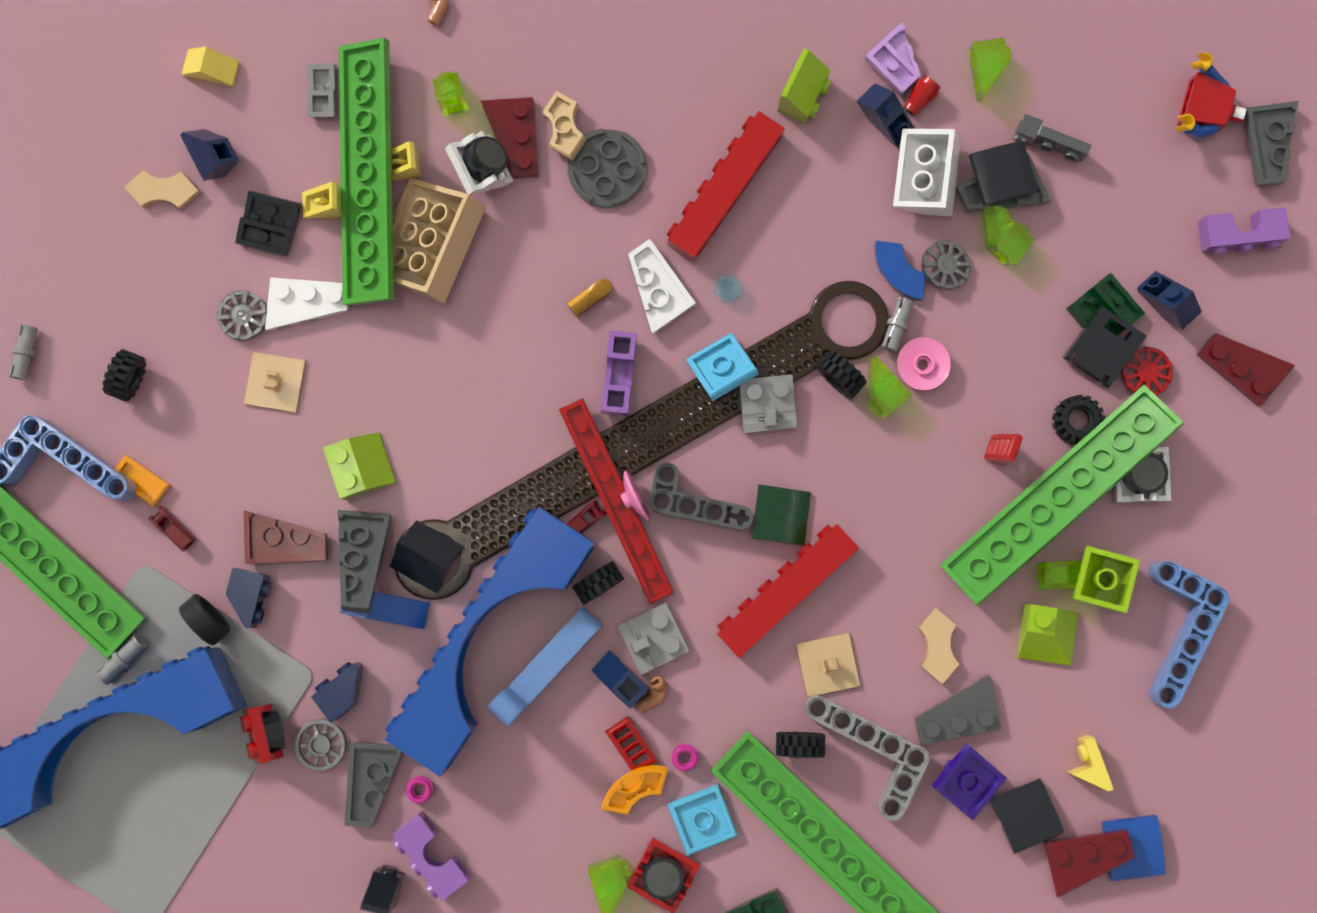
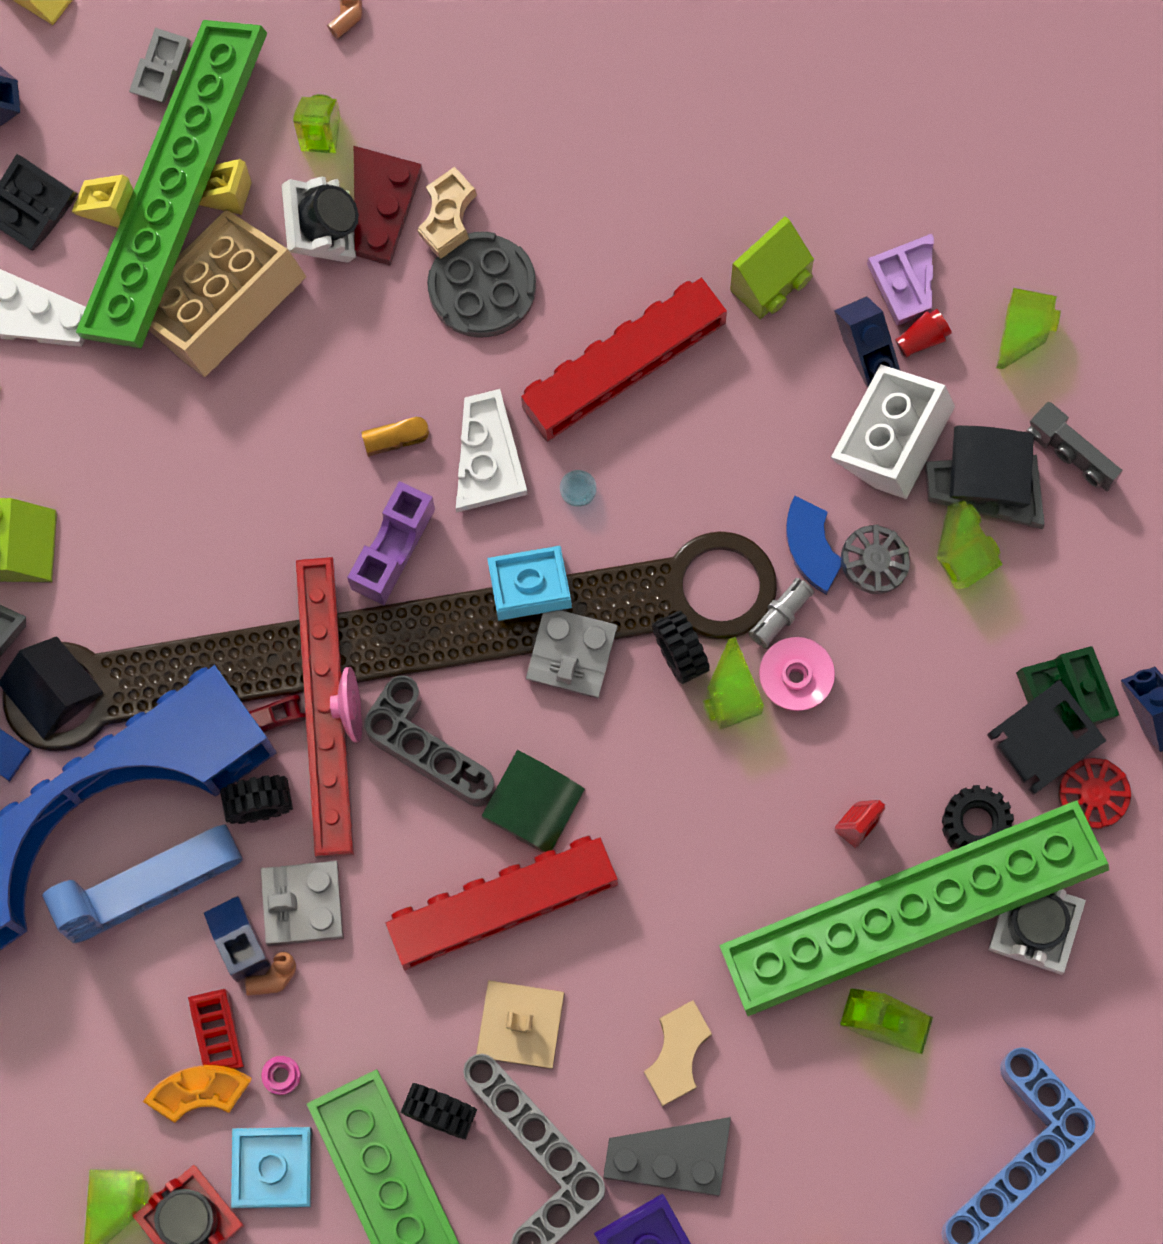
camera: 20 degrees right, 10 degrees down
(1047, 634) = (832, 1092): lime slope -> none
(1106, 580) = (931, 1042): lime slope -> none

